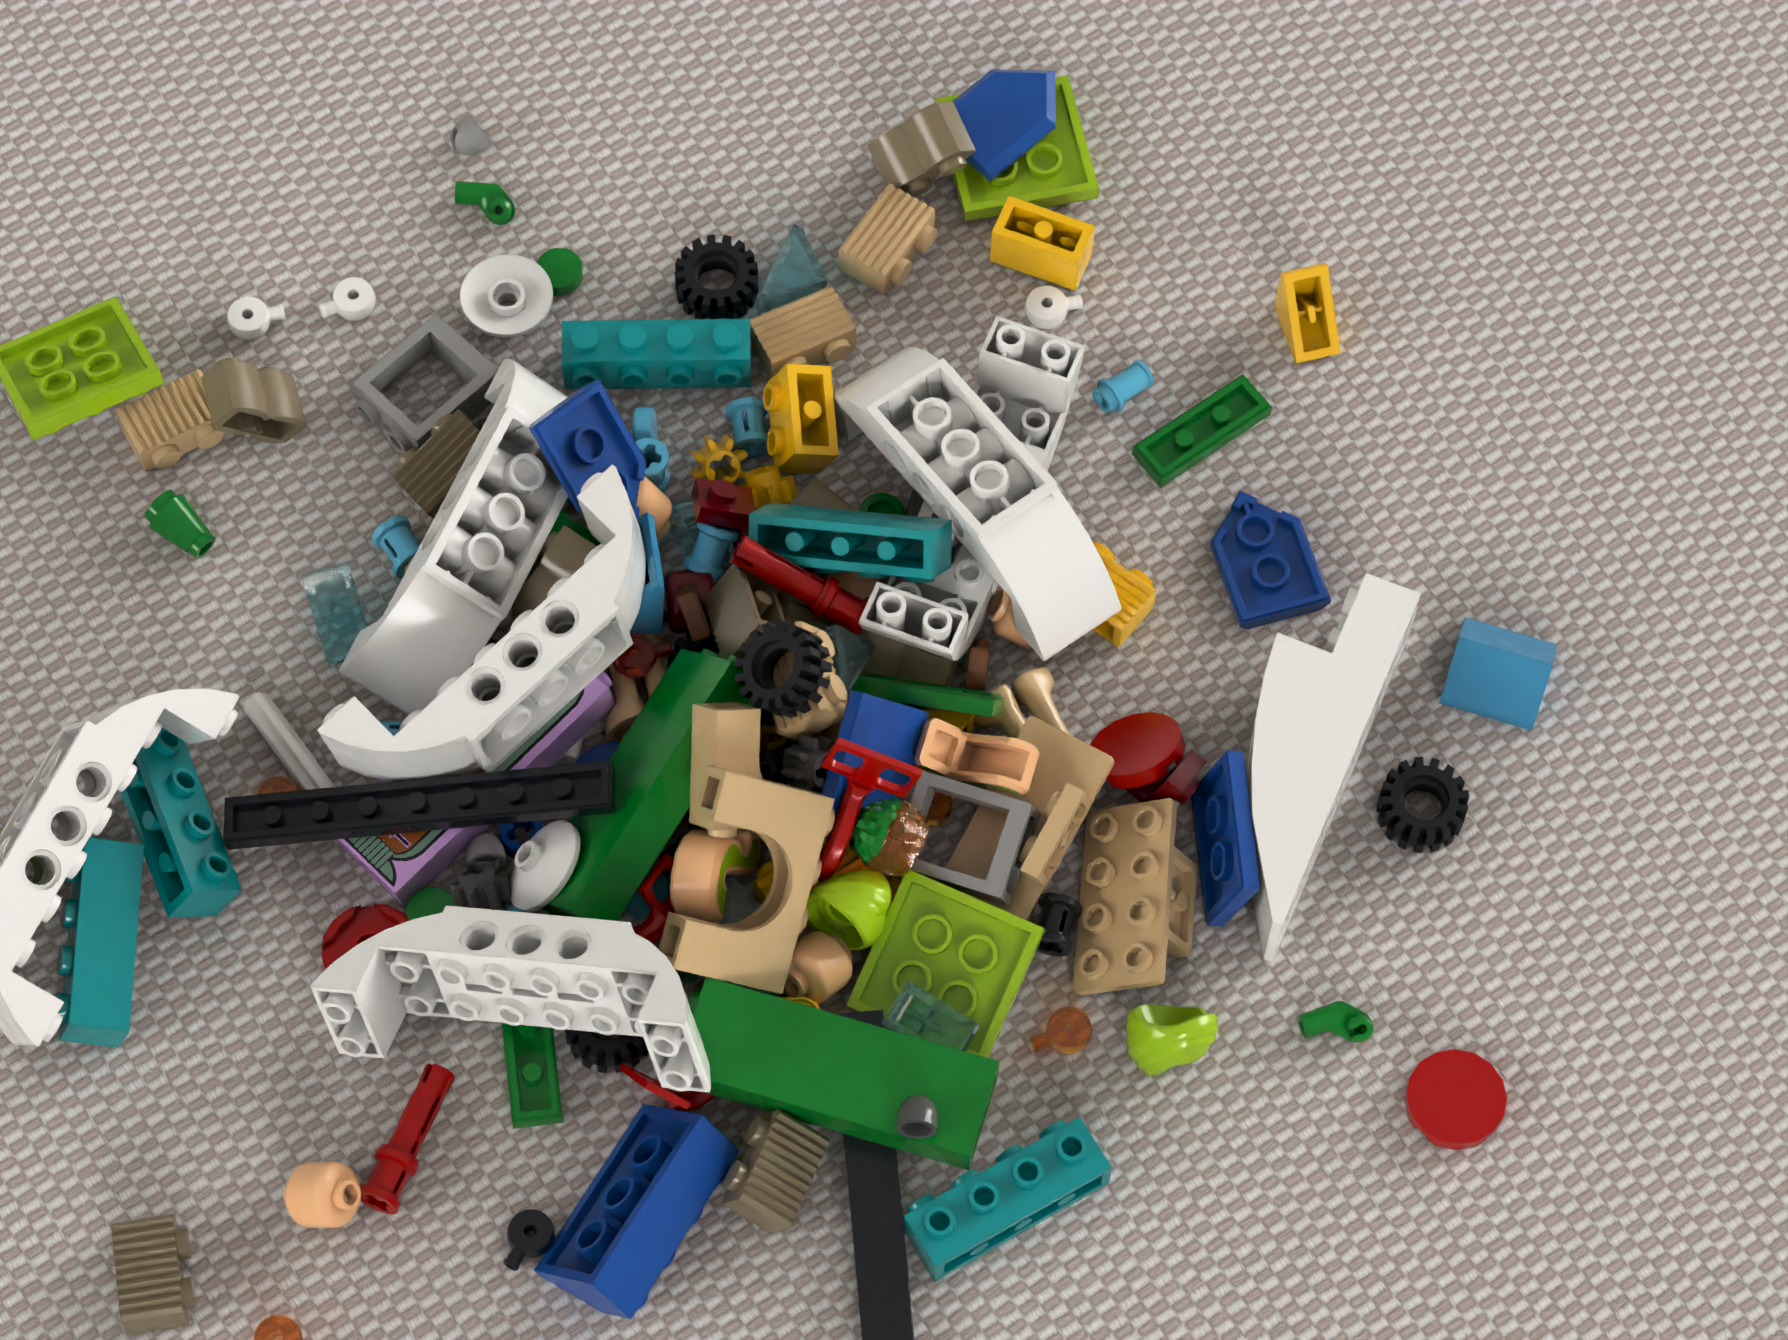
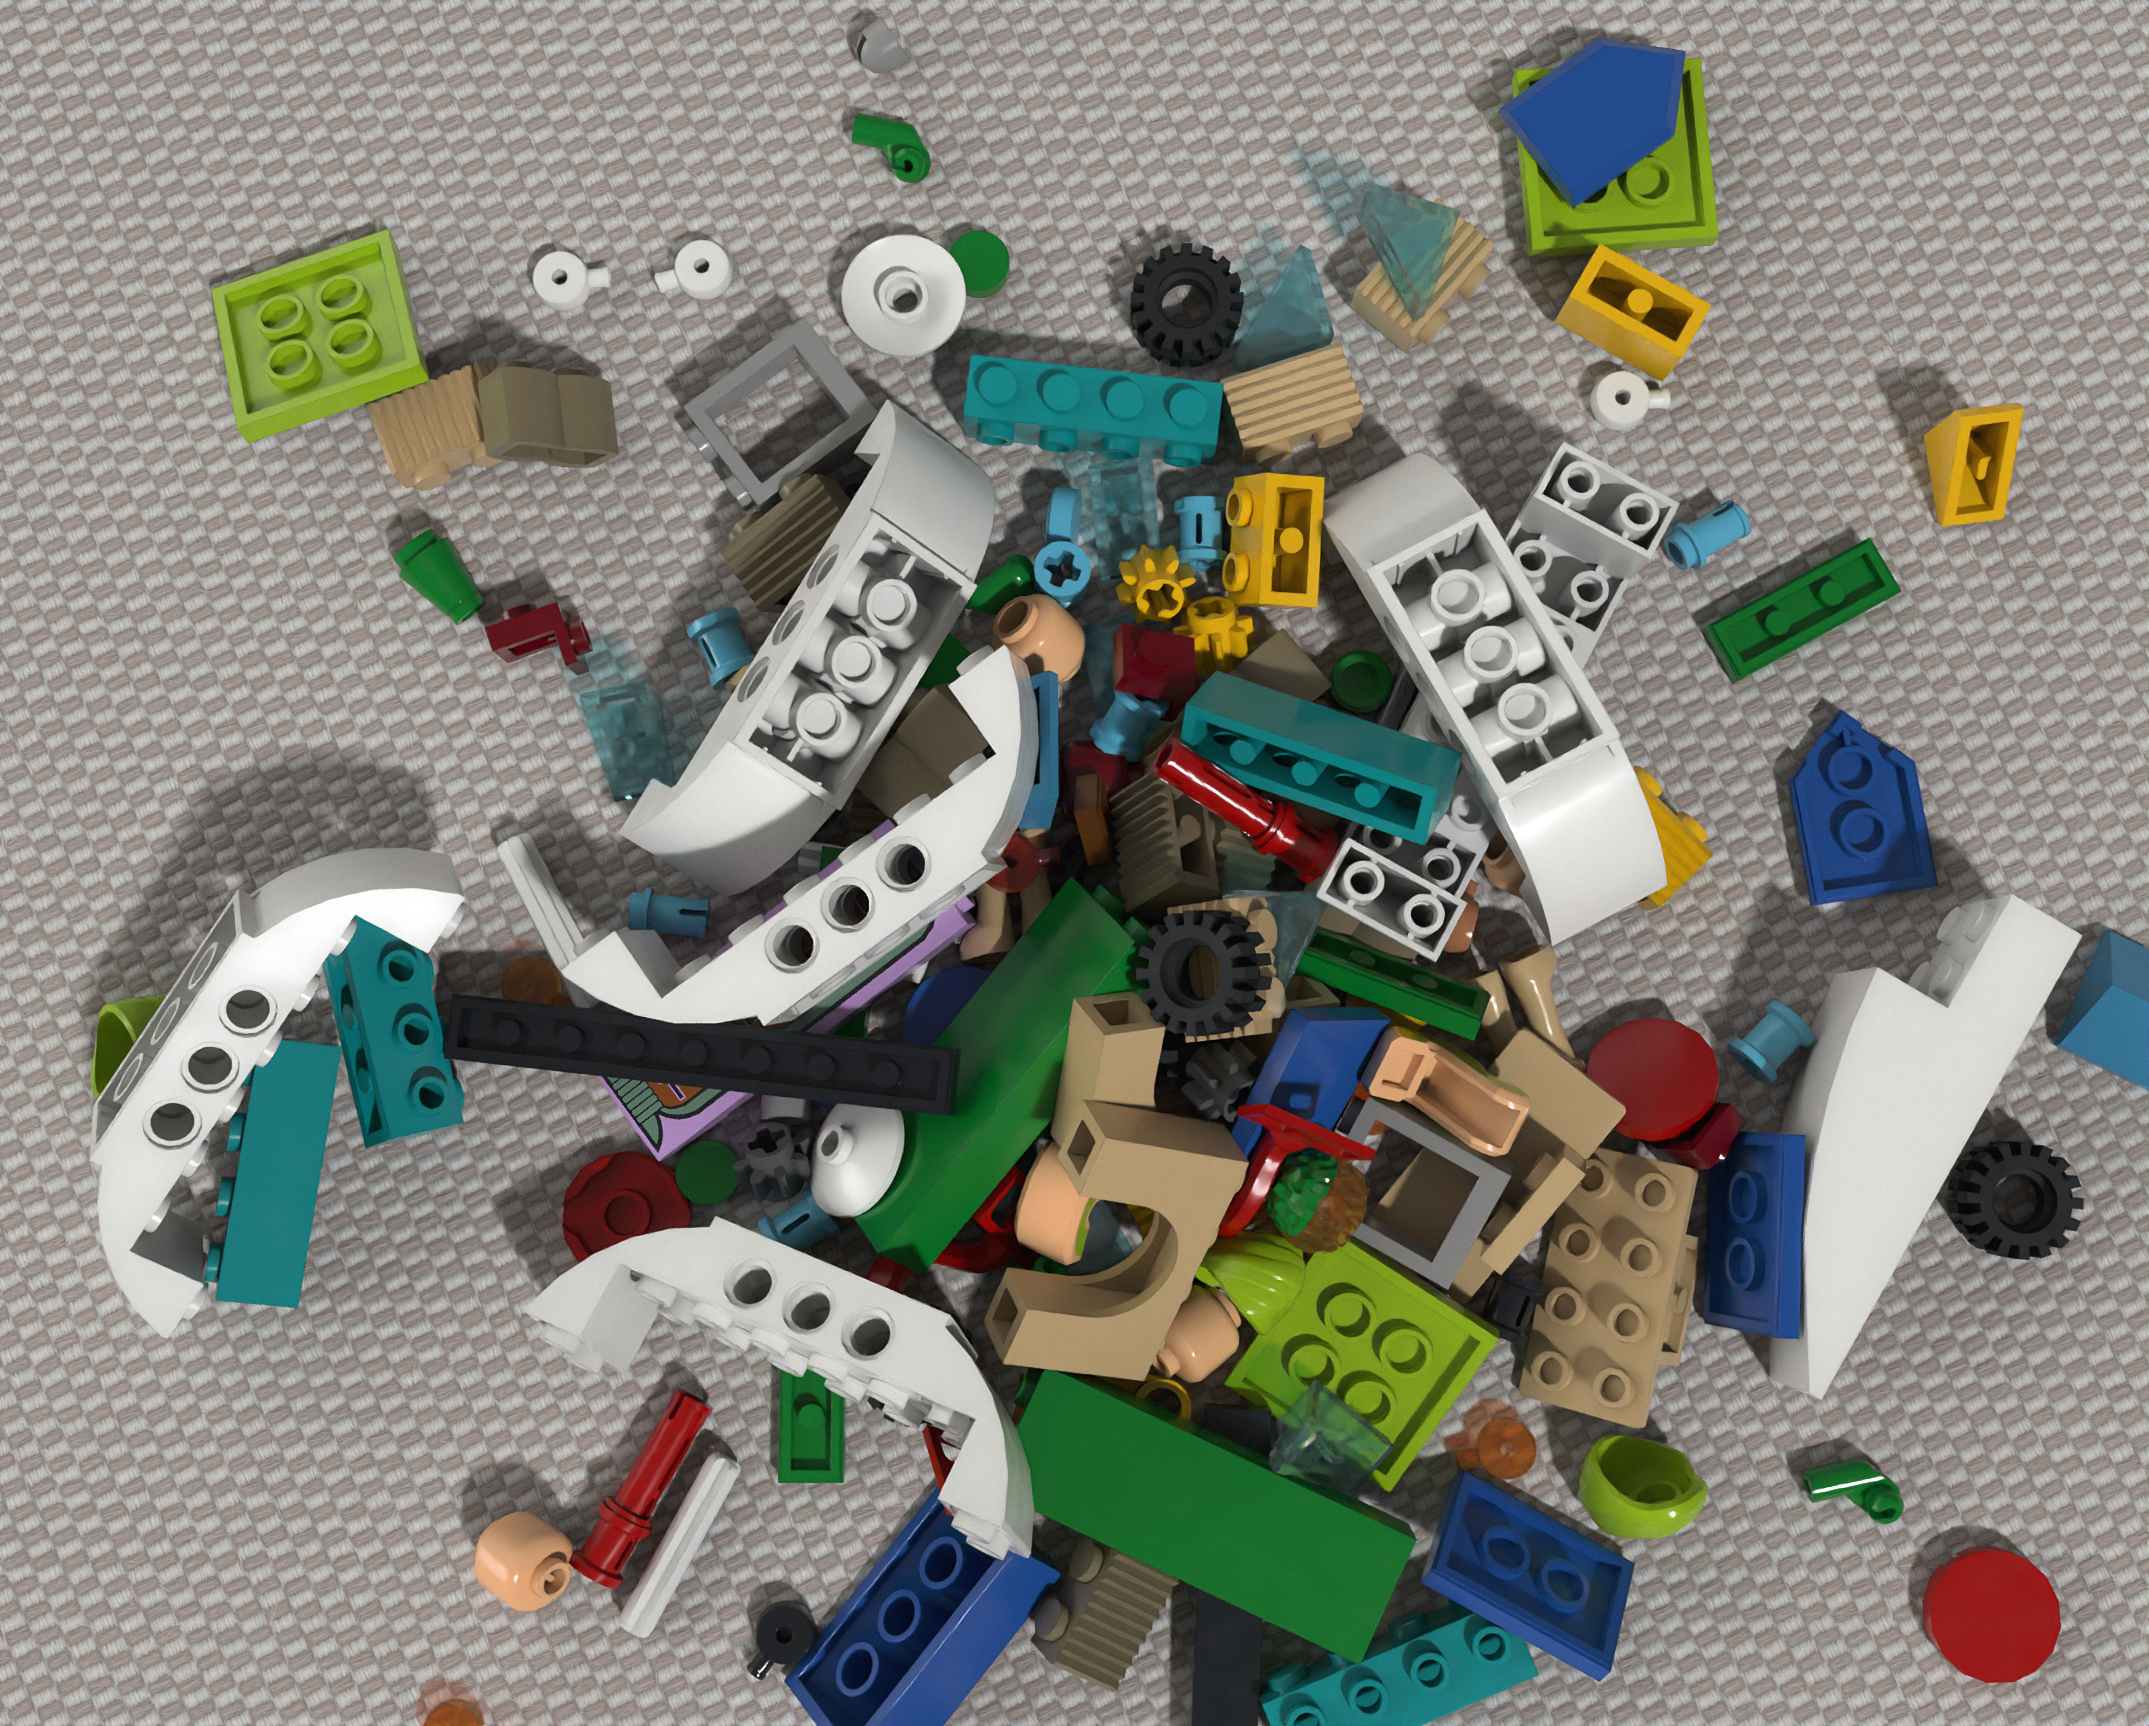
camera: 10 degrees right, 20 degrees up
(151, 1274) = (300, 1631): dark tan brick -> none
(259, 550) = (532, 630): none -> dark red bracket
(440, 1179) = (679, 1544): none -> white axle
(586, 438) = (982, 576): blue tile -> none
(686, 416) = (1122, 512): none -> clear light blue slope
(870, 207) = (1408, 239): none -> clear light blue slope
(917, 1117) = (1299, 1612): dark grey hinge -> none
(923, 148) = (1491, 150): dark tan brick -> none
(1095, 1100) = (1529, 1574): none -> blue tile
(1223, 719) = (1771, 1042): none -> medium azure bush

